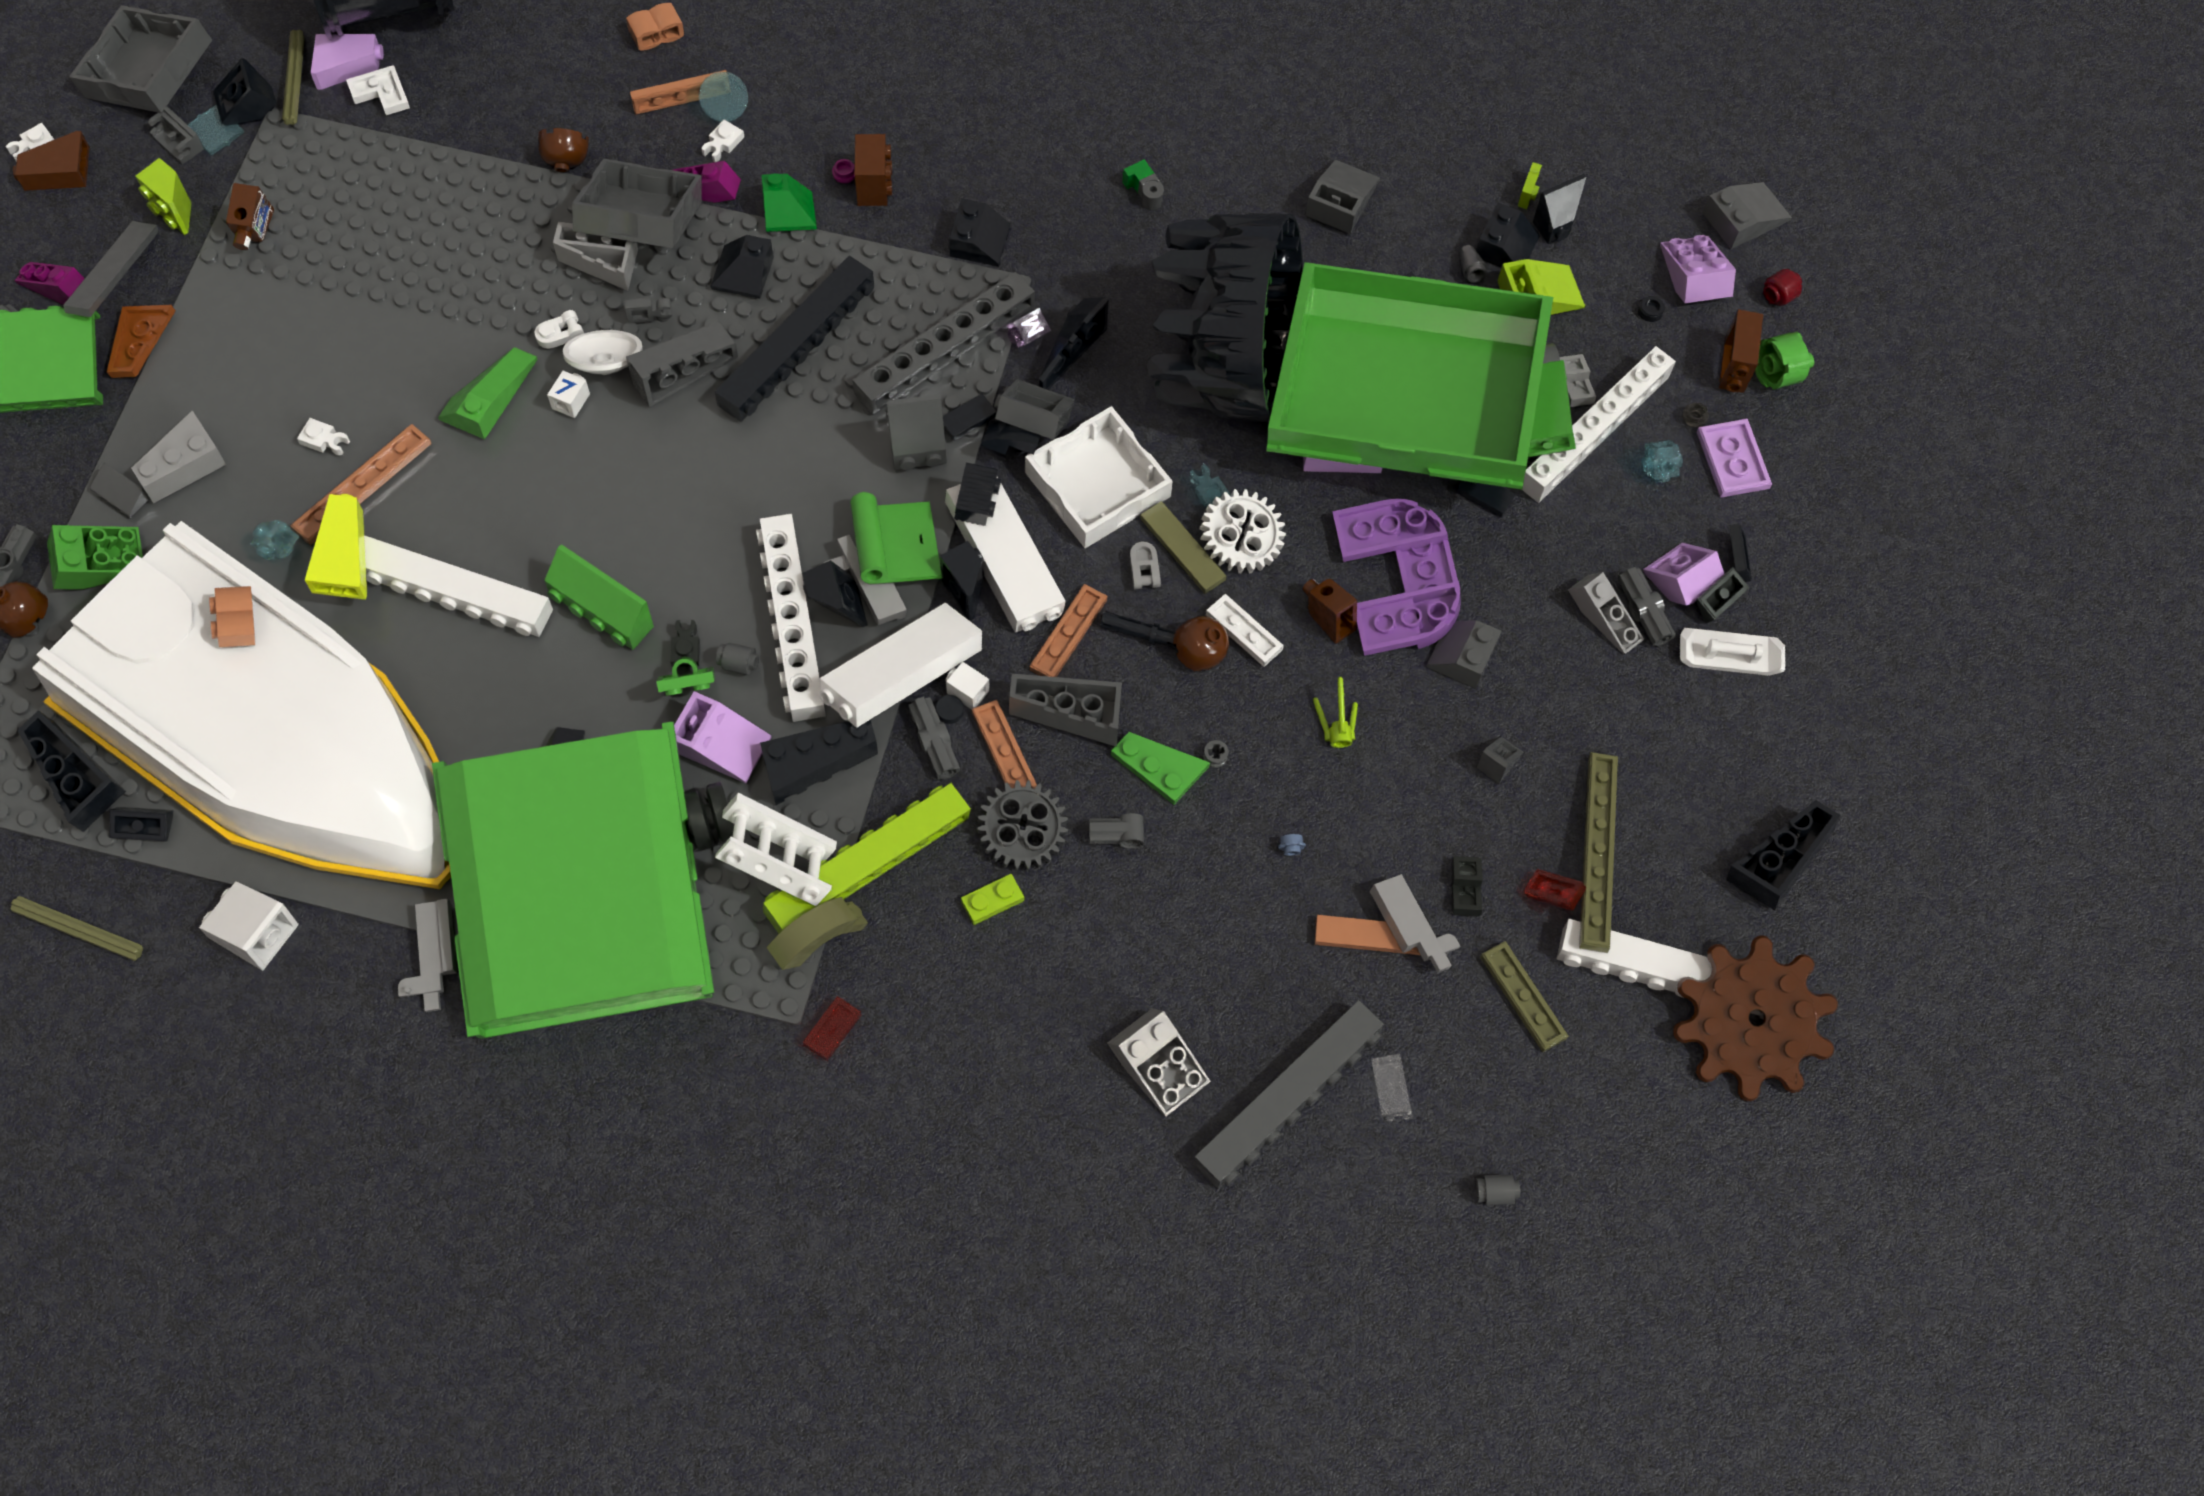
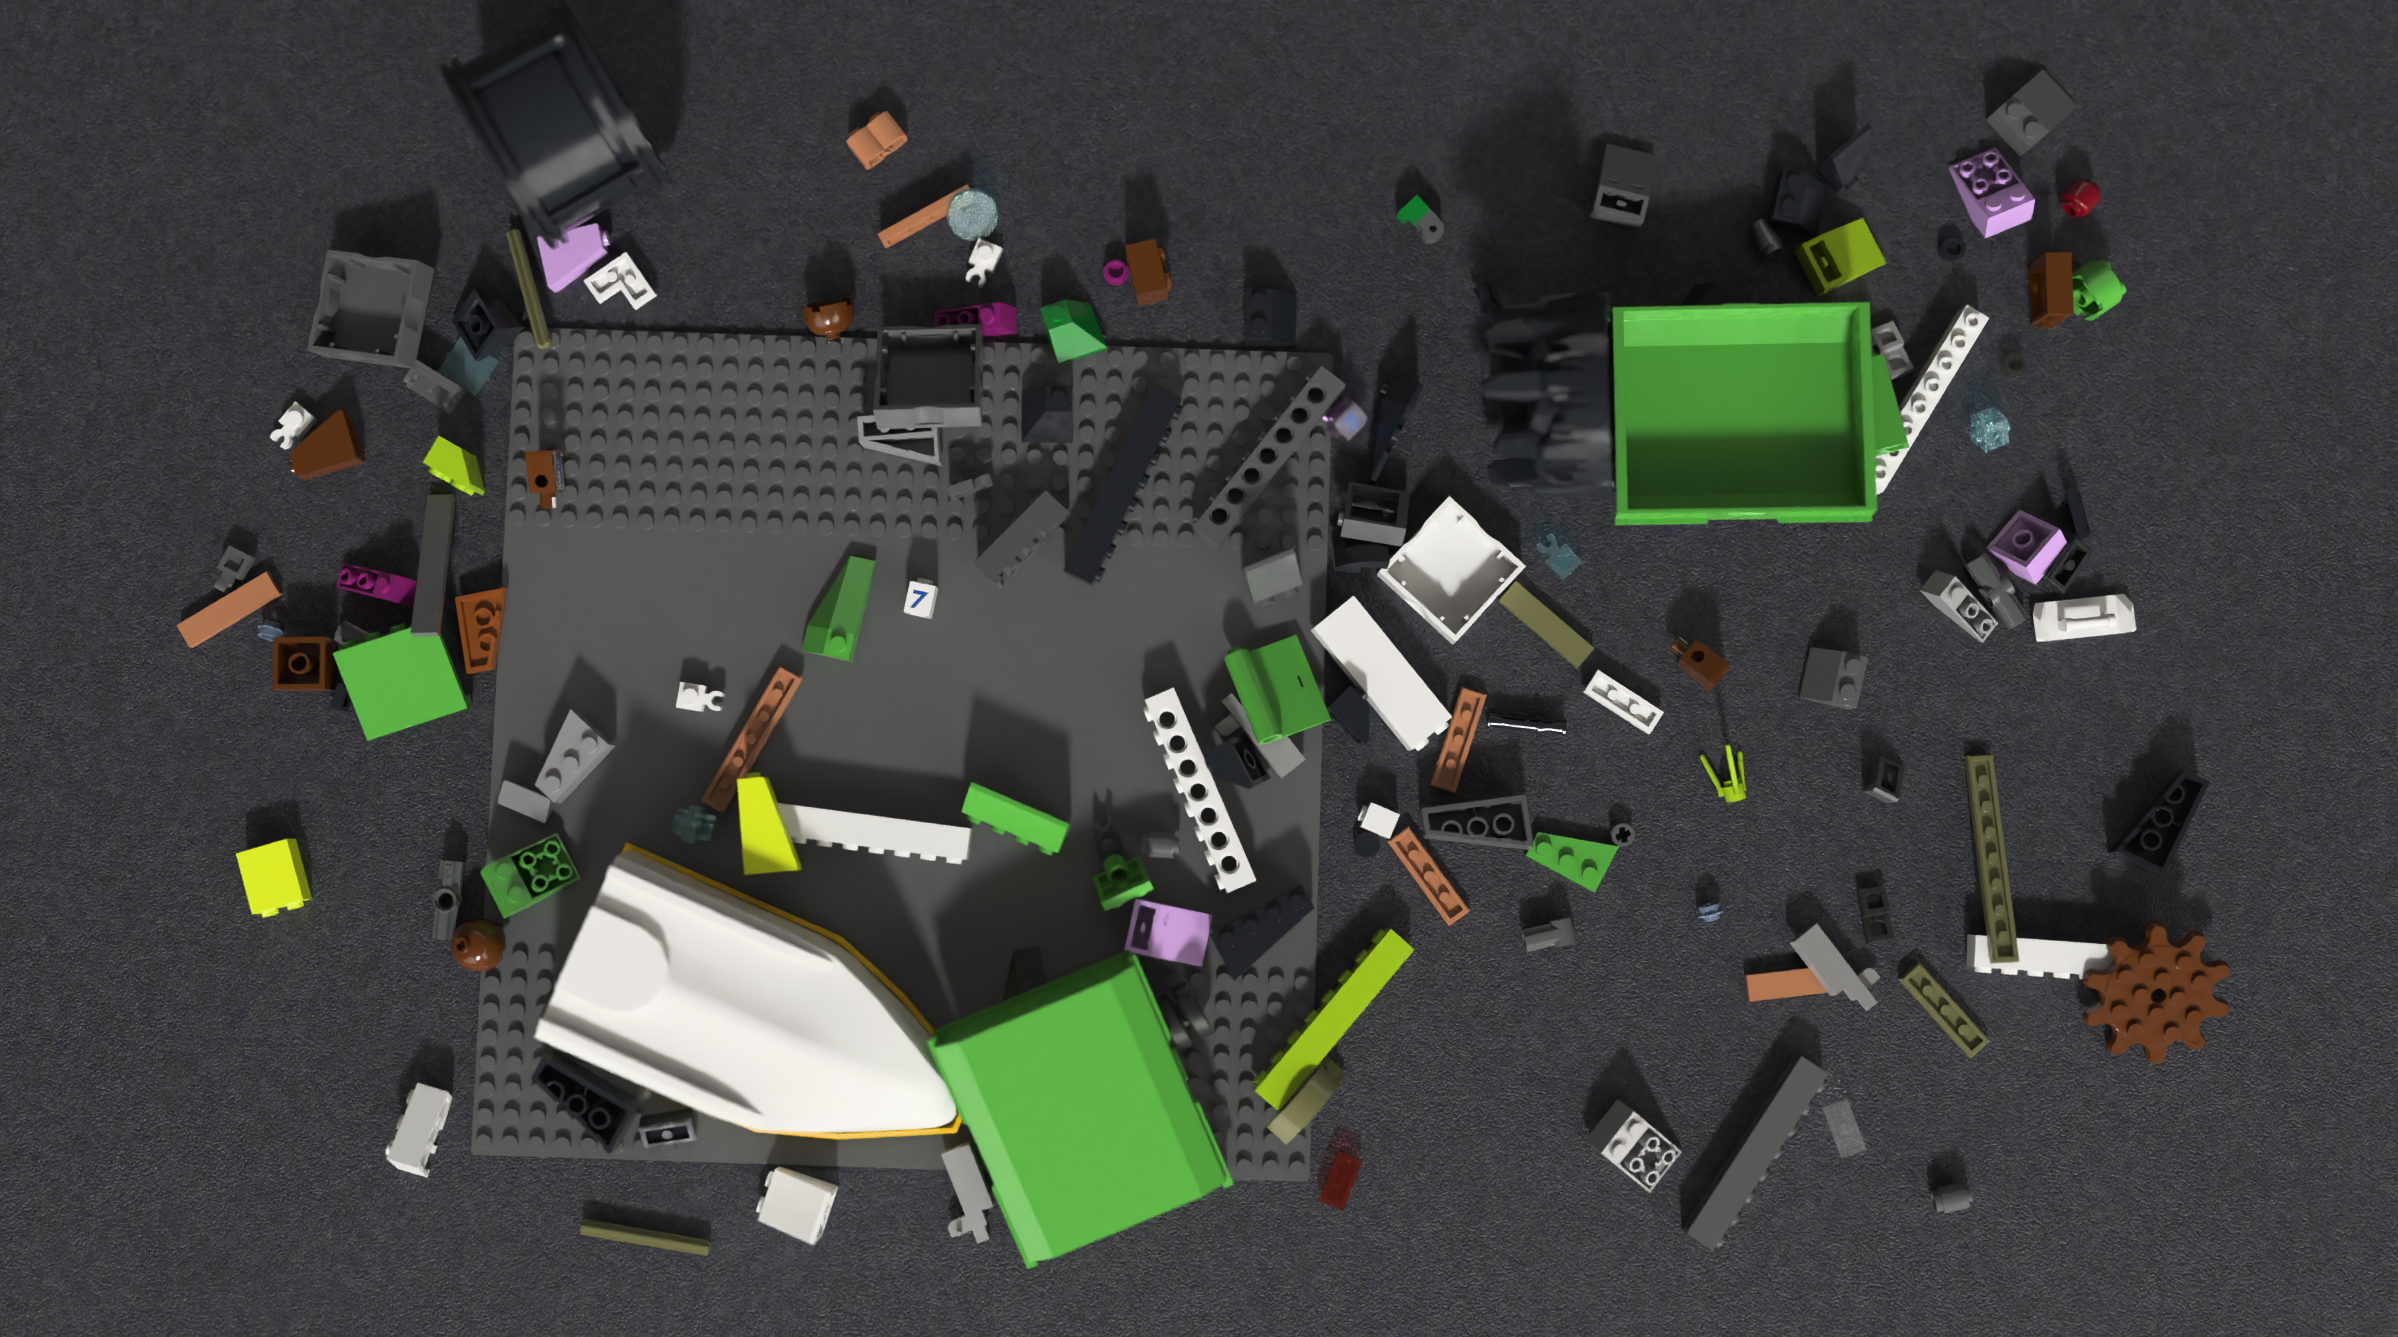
camera: 10 degrees left, 20 degrees up
(233, 616) = (706, 953): nougat brick -> none
(549, 333) = (879, 531): white plate -> none
(601, 351) = (938, 539): white dish -> none
(785, 832) = (1264, 1023): white fence -> none
(900, 664) = (1316, 823): white brick -> none
(934, 738) = (1361, 880): dark grey piece -> none
(968, 417) = (1310, 533): black tile -> none
(976, 494) = (1346, 631): black brick -> none
(992, 899) = (1451, 1024): lime plate -> none
(1019, 849) = (1463, 973): dark grey gear -> none
(1144, 557) = (1510, 646): light grey plate -> none
(1201, 643) = (1587, 728): reddish brown cylinder -> none
(1265, 540) = (1623, 600): white gear -> none
(1426, 570) = (1783, 603): medium lavender plate -> none
(1530, 189) = (1809, 136): lime plate -> none
(1555, 889) = (1957, 907): clear red plate -> none
(1734, 458) = (2056, 403): lavender tile -> none

